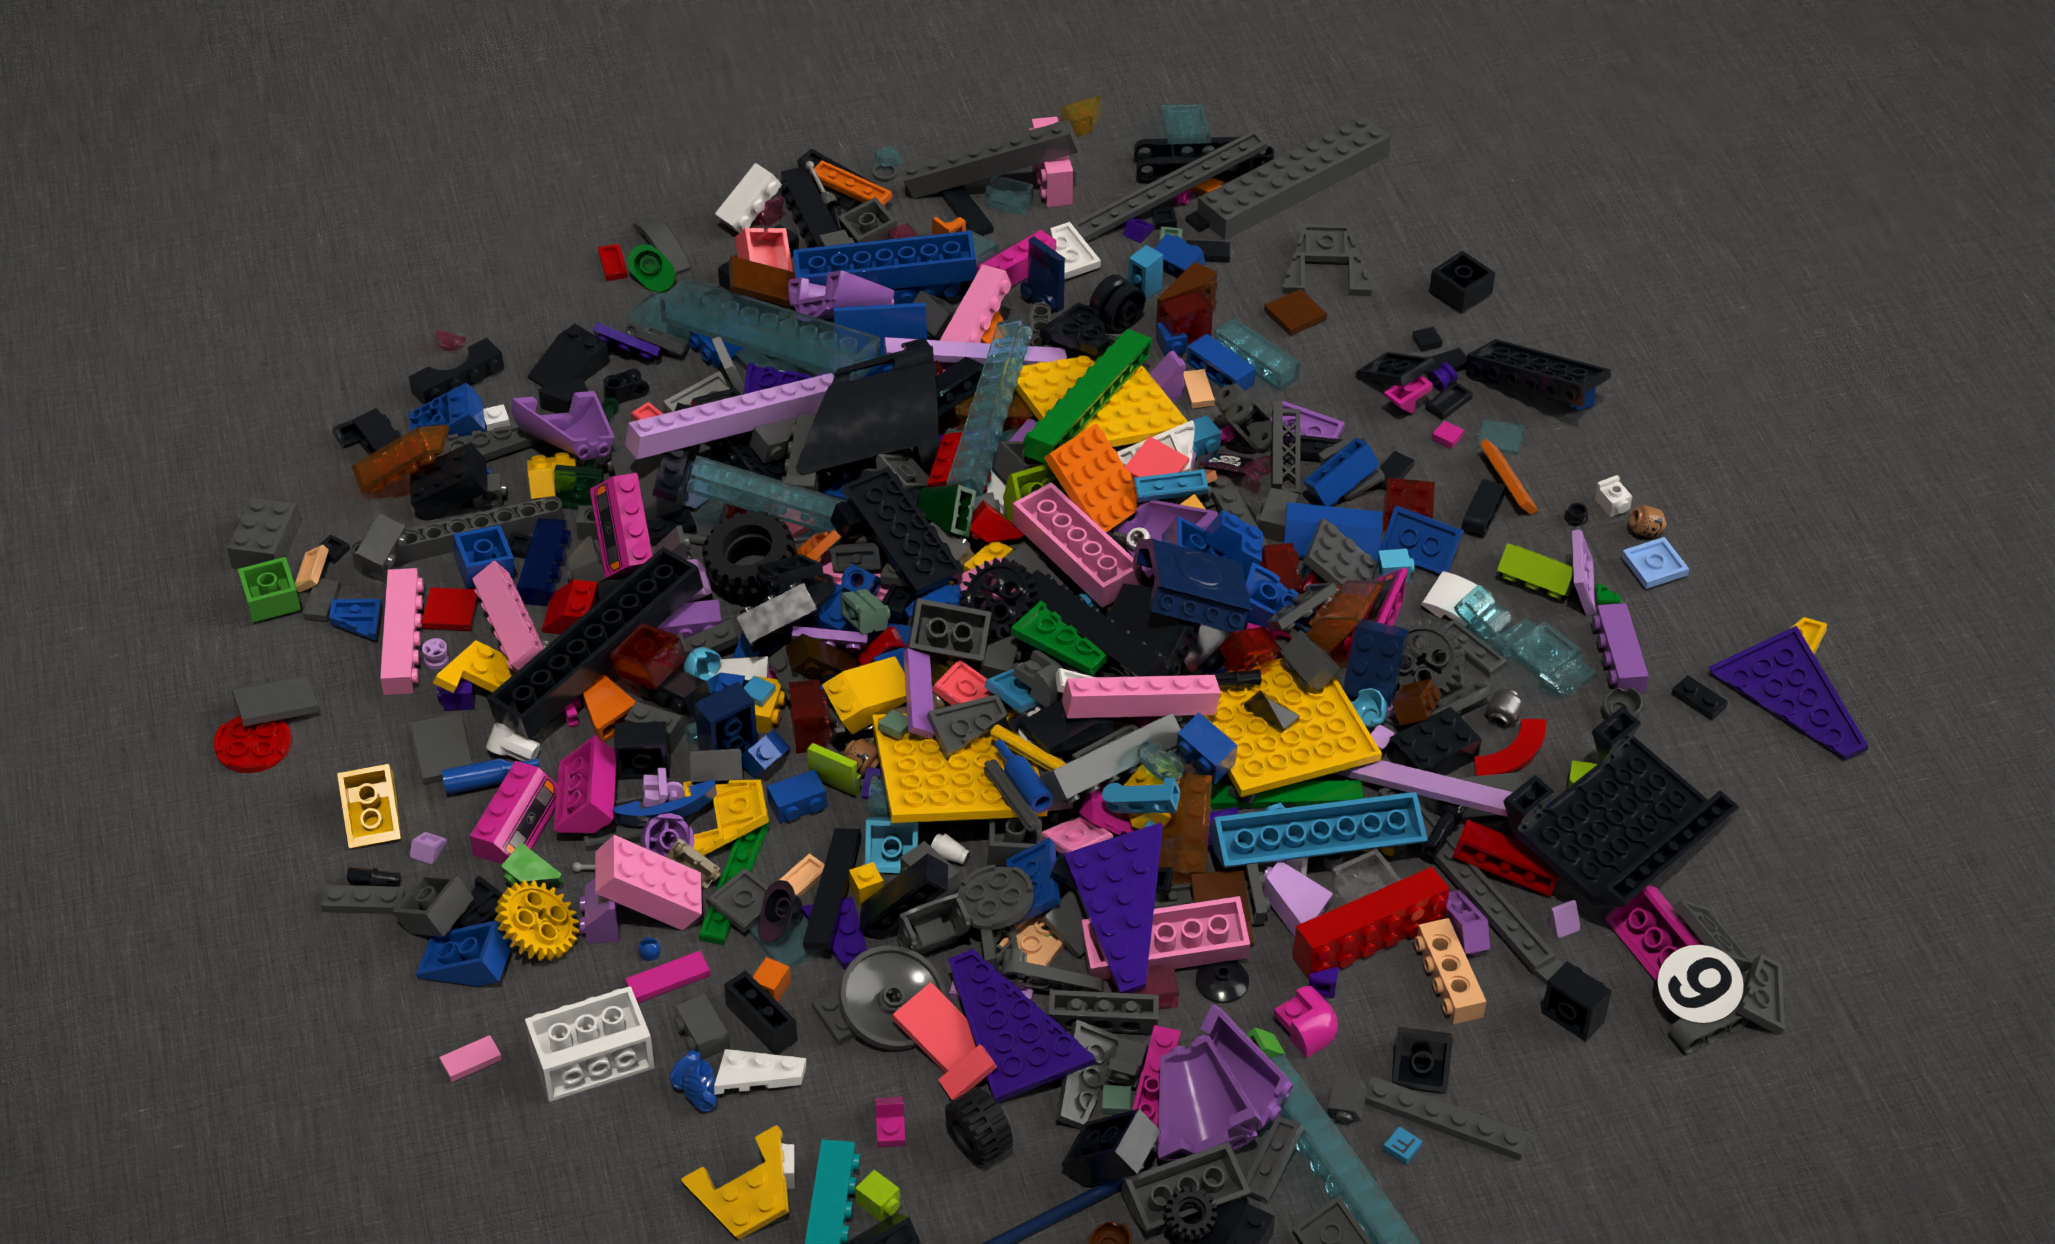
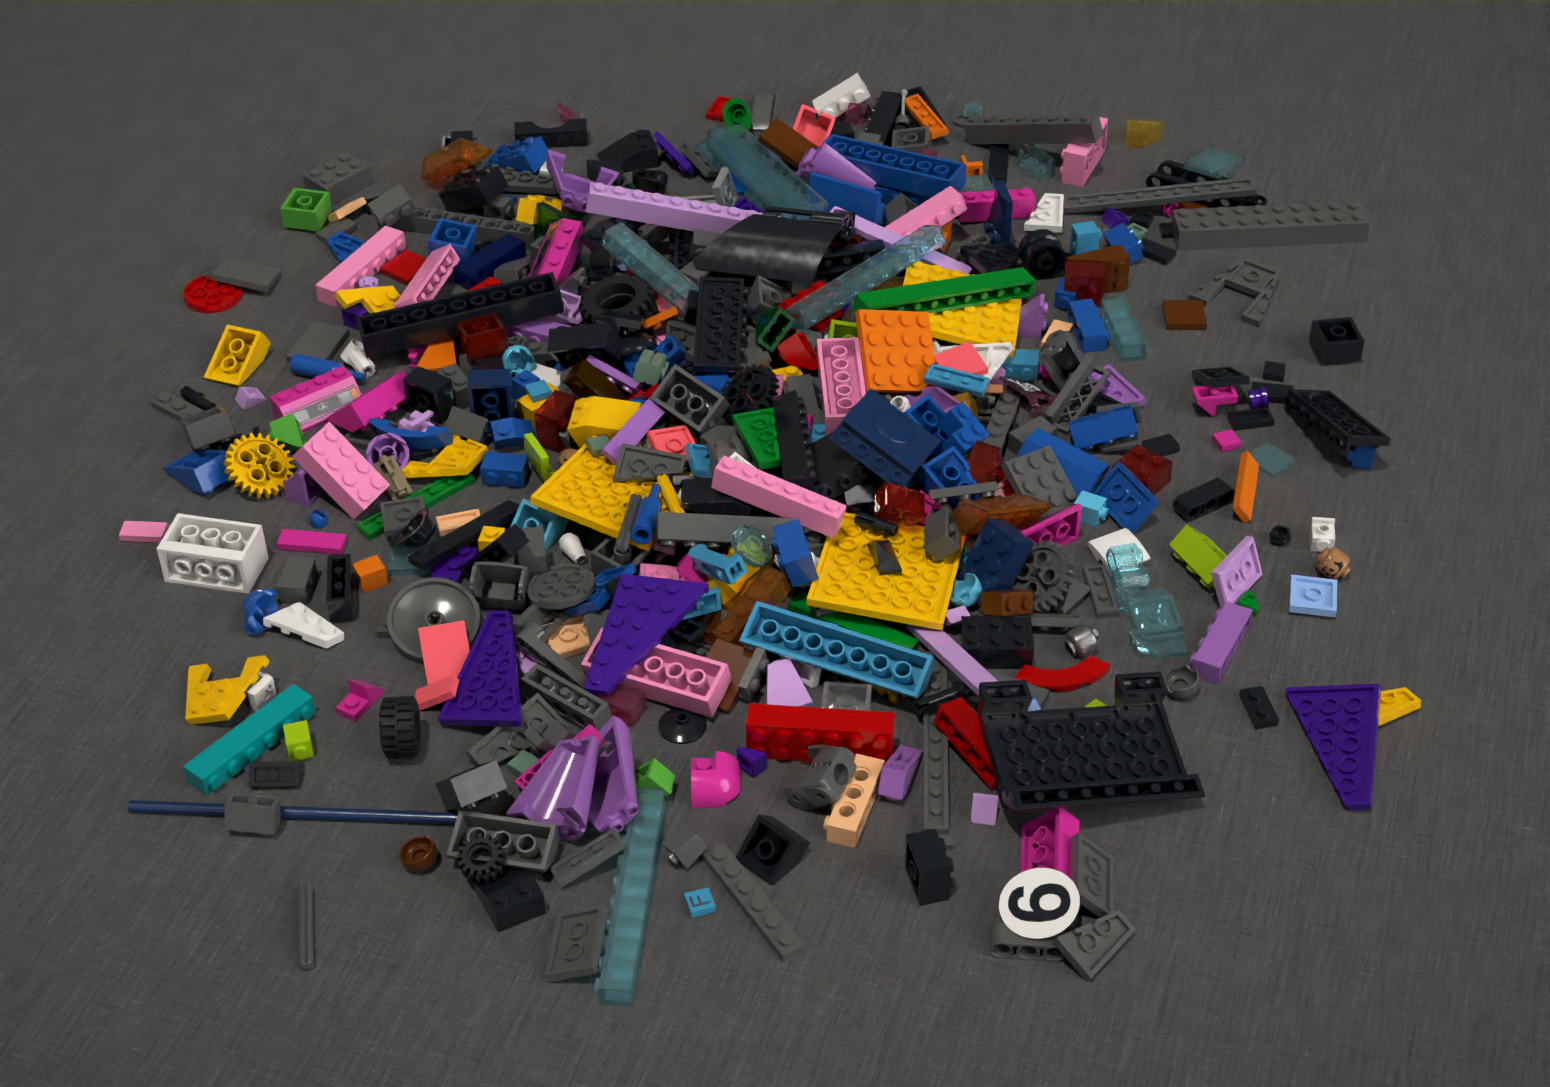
camera: 35 degrees right, 5 degrees down
(1414, 963) = (824, 778): none -> dark grey piece

